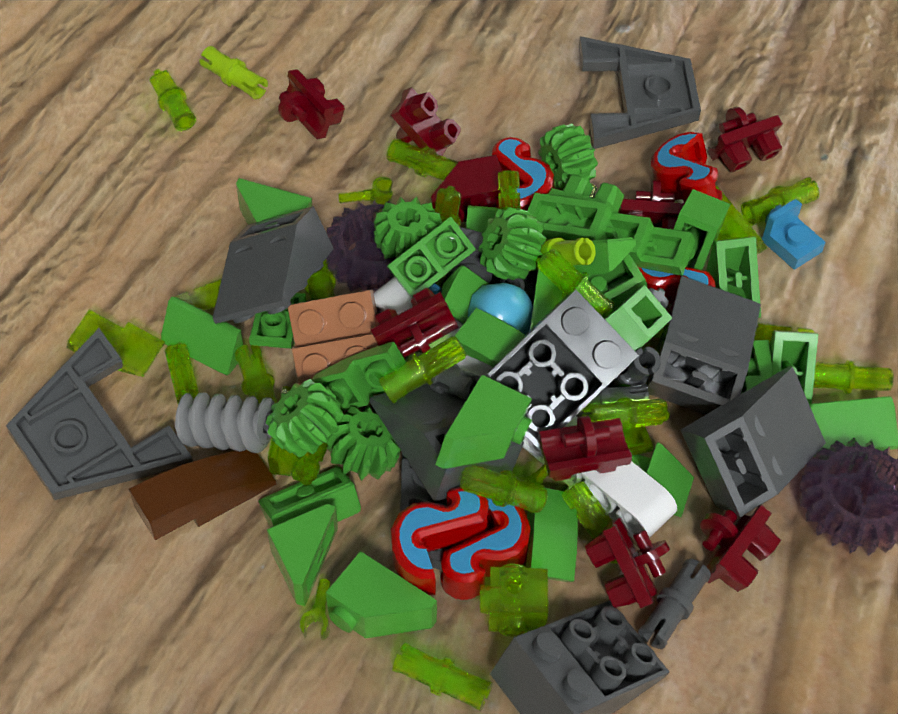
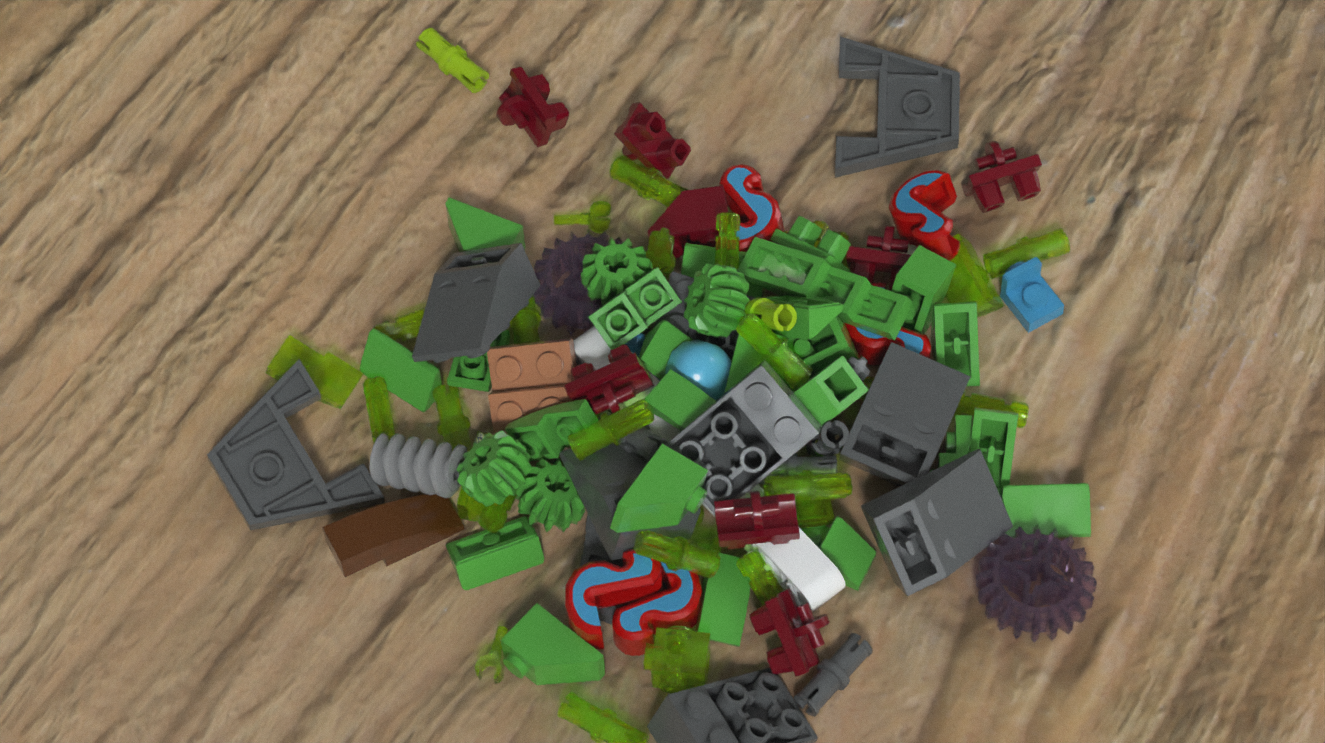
camera: 10 degrees right, 5 degrees up
(172, 100) = (384, 91): clear neon green axle -> none
(302, 547) = (484, 595): bright green slope -> none
(568, 153) = (801, 189): bright green gear -> none
(733, 540) = (918, 612): dark red hips -> none
(851, 377) = (1052, 458): clear neon green axle -> none

